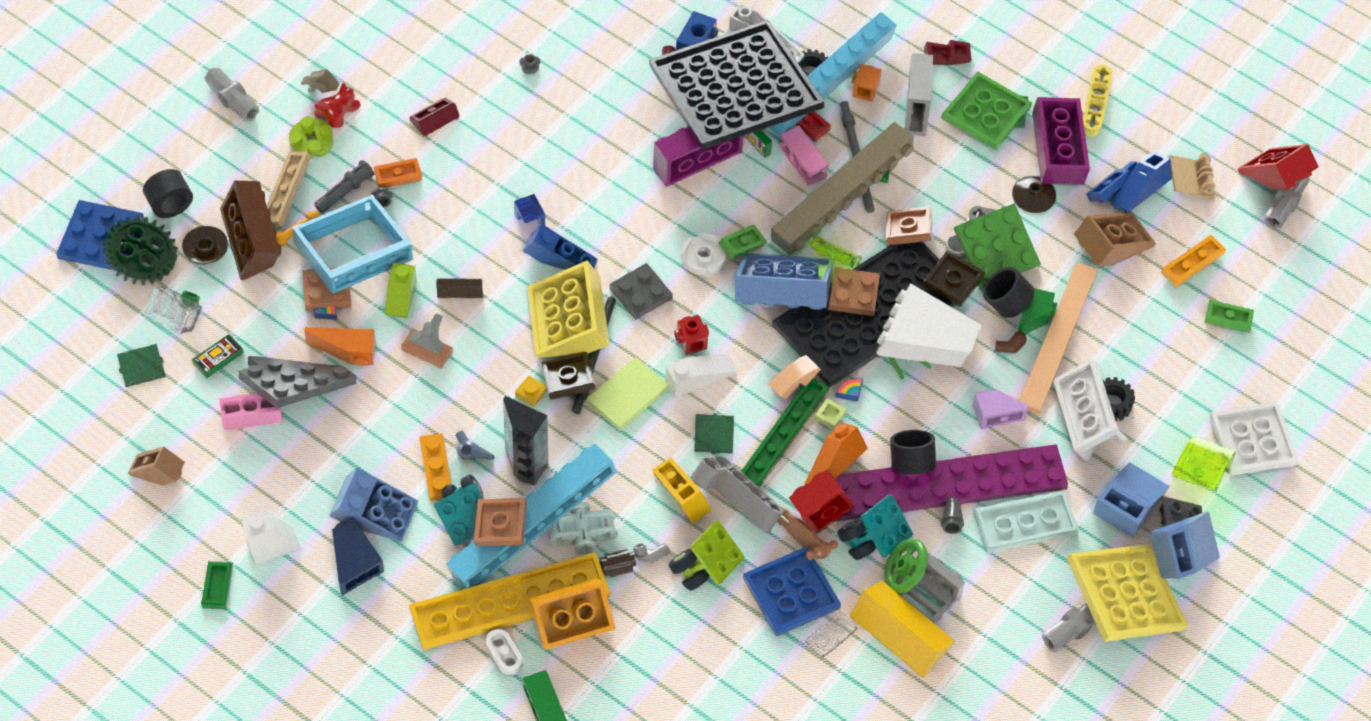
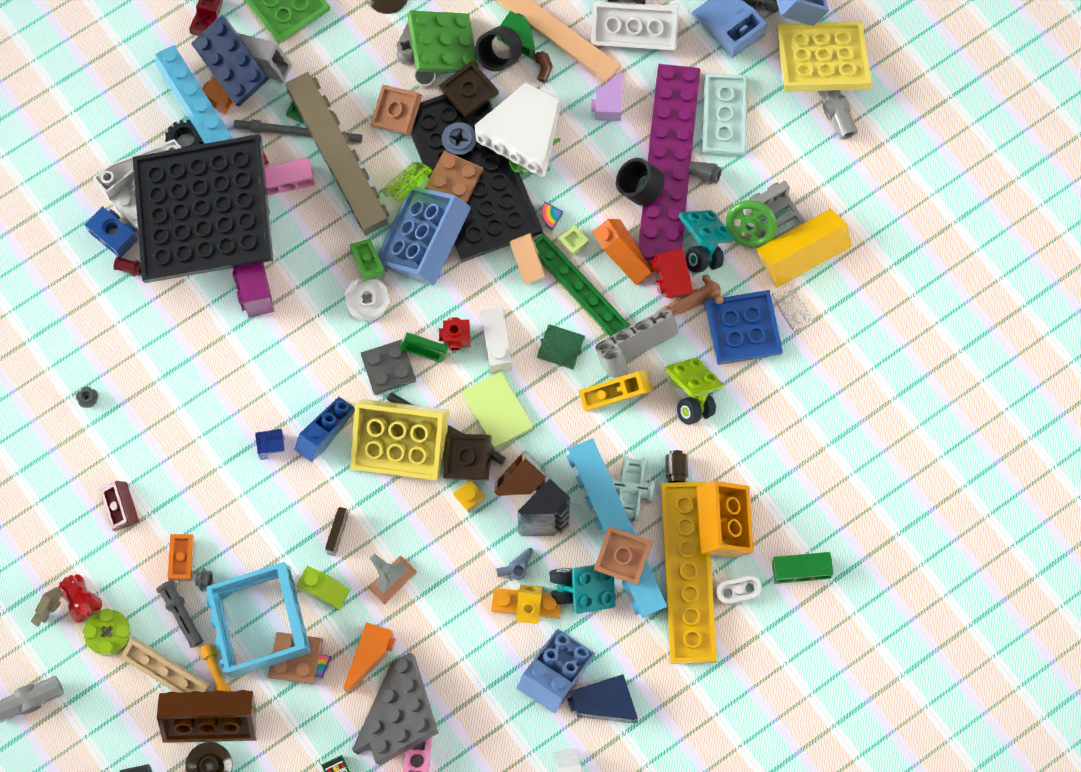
camera: 70 degrees left, 15 degrees up
(434, 463) = (529, 604): none -> yellow bracket
(564, 416) = (521, 477): none -> reddish brown slope
(649, 555) = (673, 436): light grey arm -> none
(667, 309) = (423, 347): none -> green tile
(889, 278) = (454, 131): none -> sand blue gear
(899, 73) = (230, 61): none -> dark blue plate

